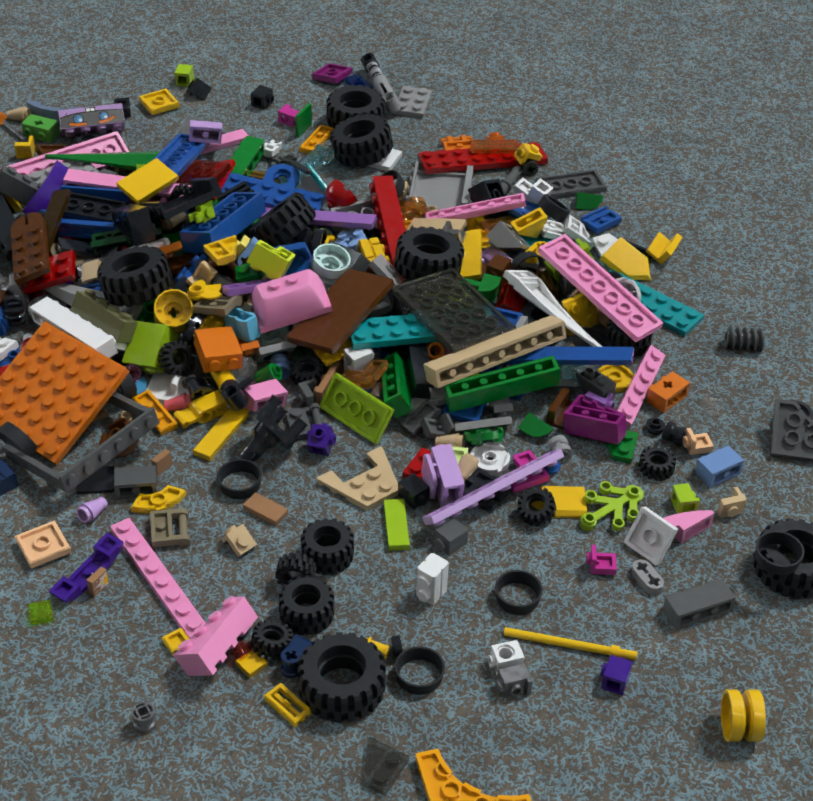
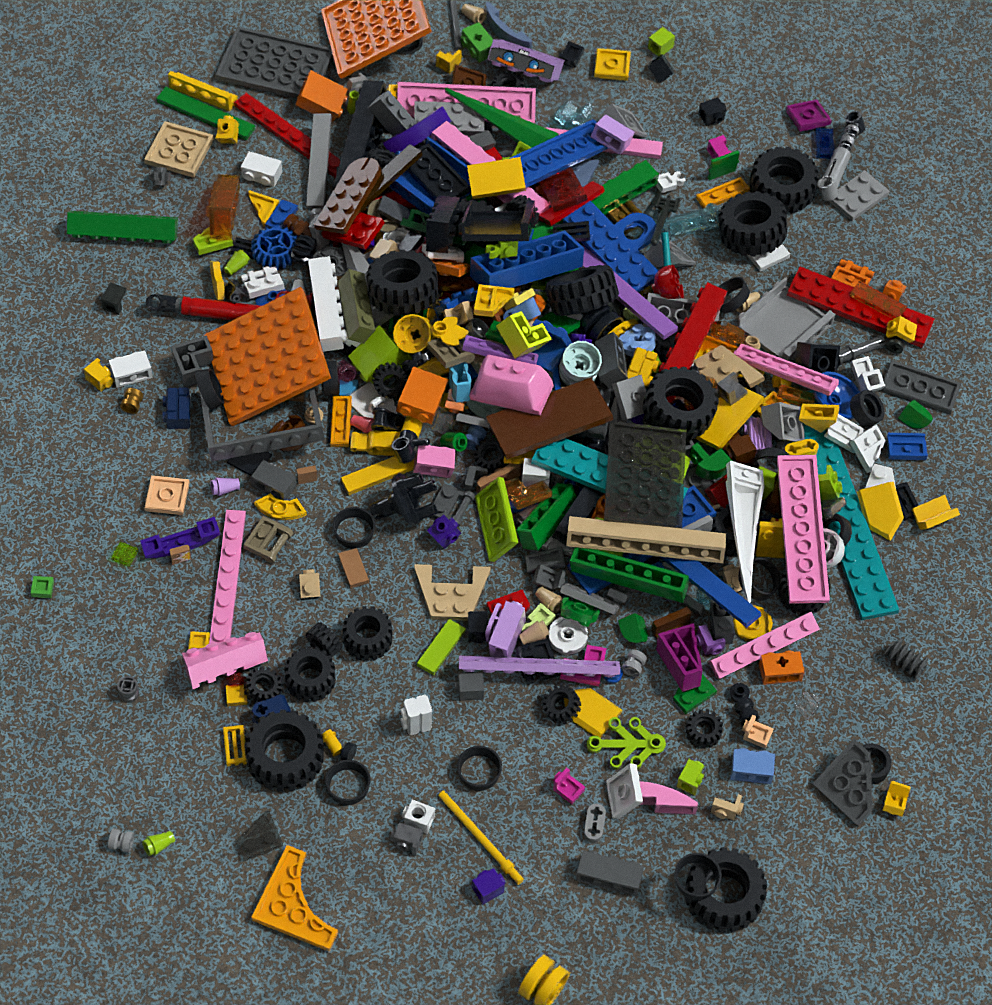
camera: 35 degrees right, 15 degrees up
(158, 141) = (570, 117): none -> clear light blue brick

